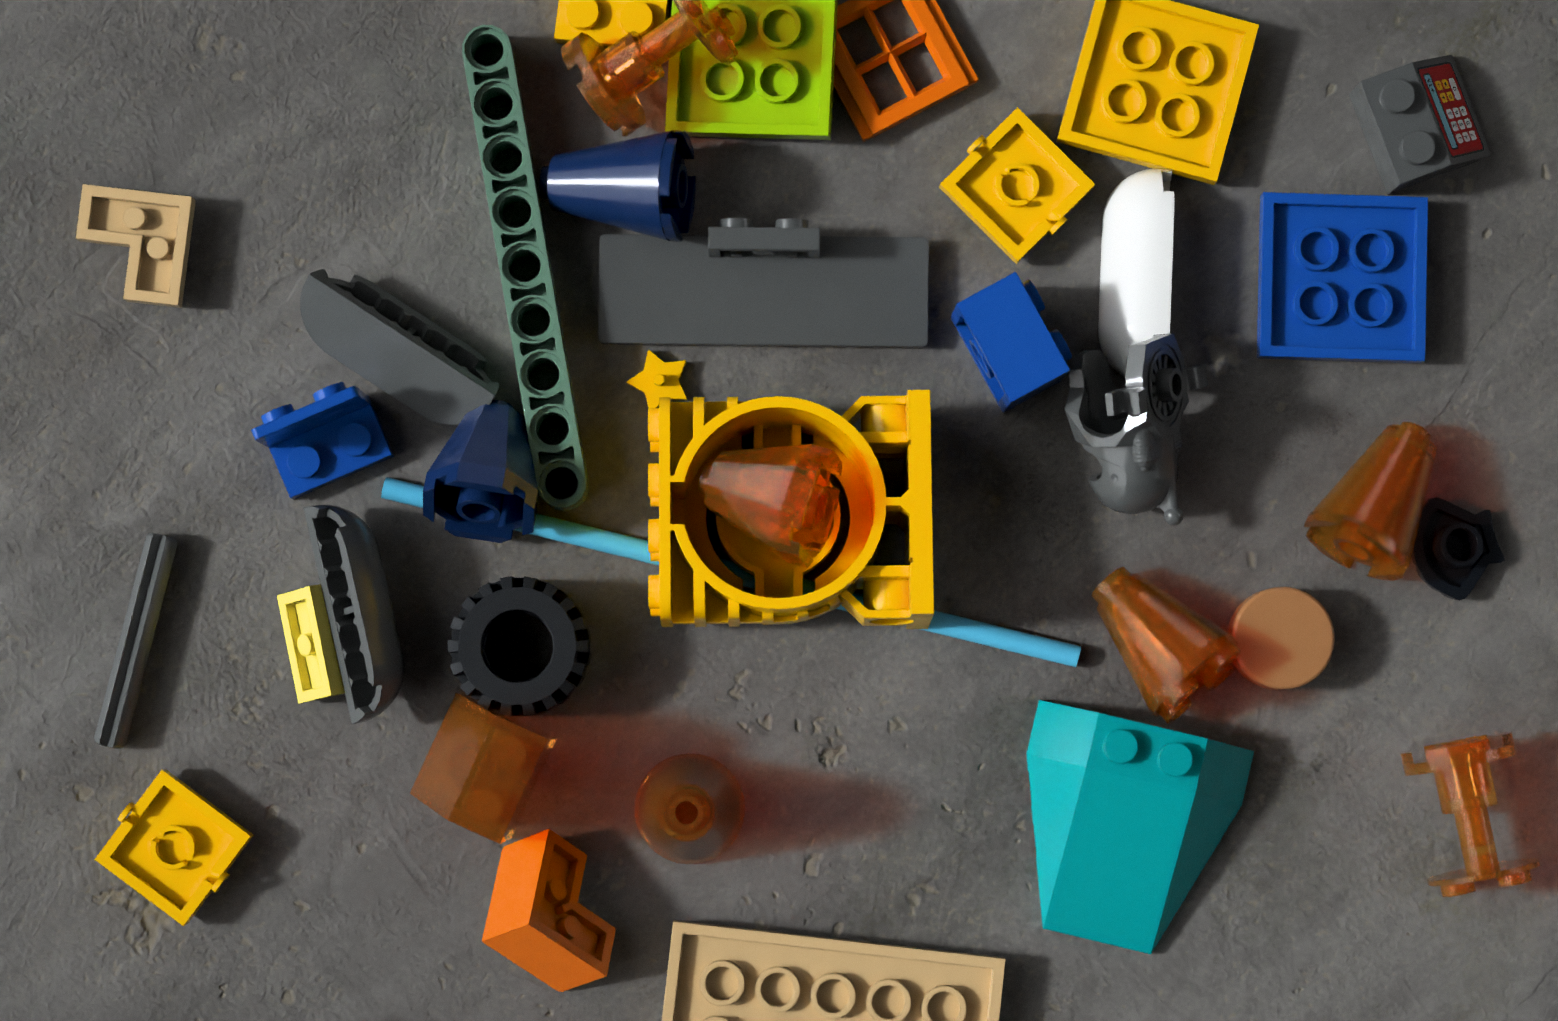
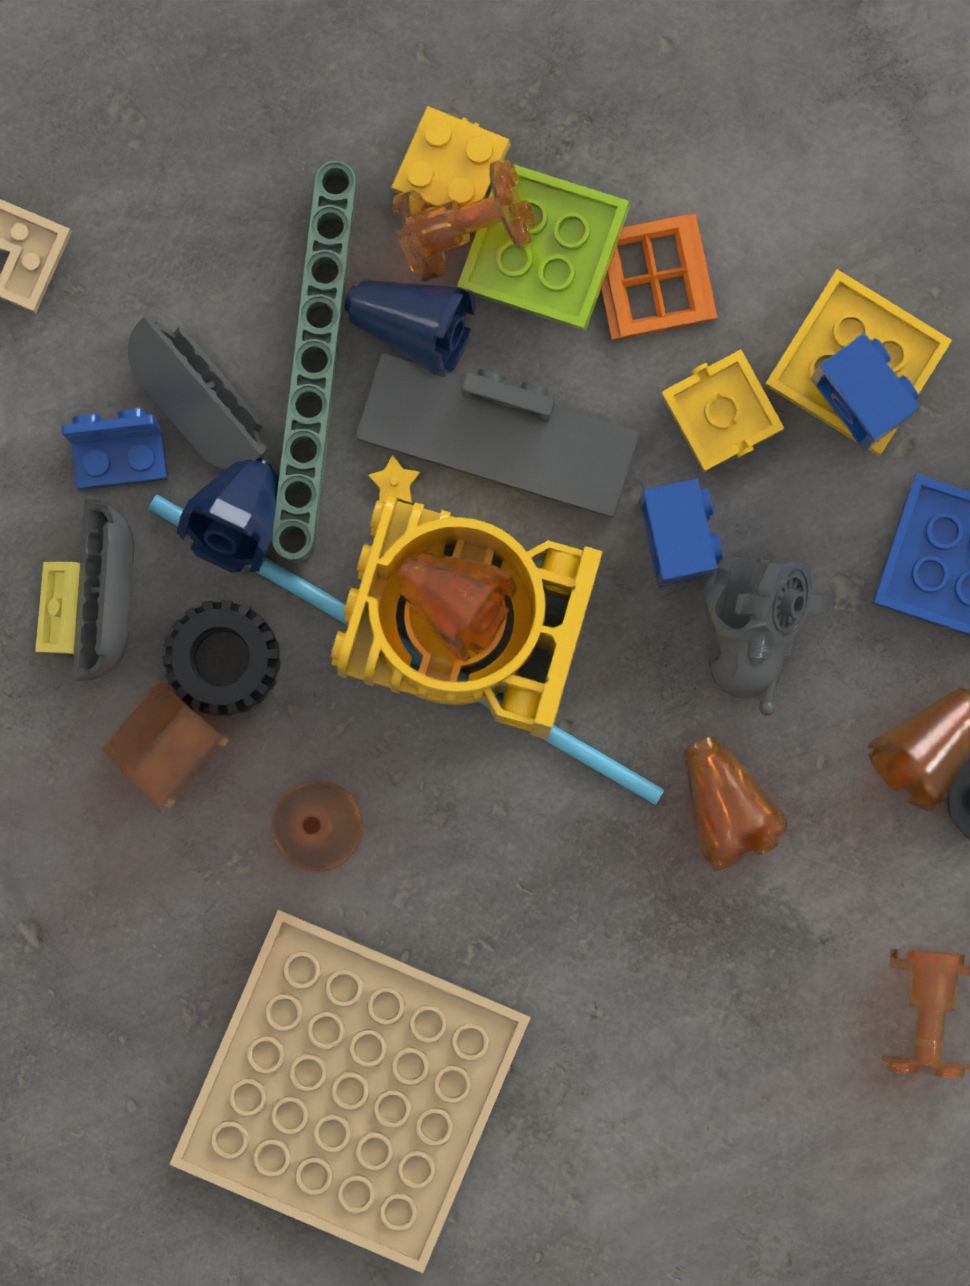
camera: 20 degrees right, 0 degrees up
(538, 916) = (174, 877): orange panel -> none
(1124, 820) = (658, 937): teal wedge -> none
(1136, 264) = (798, 499): white brick -> none
(1180, 112) = (866, 390): none -> blue brick
(1282, 638) = (824, 830): medium nougat head -> none

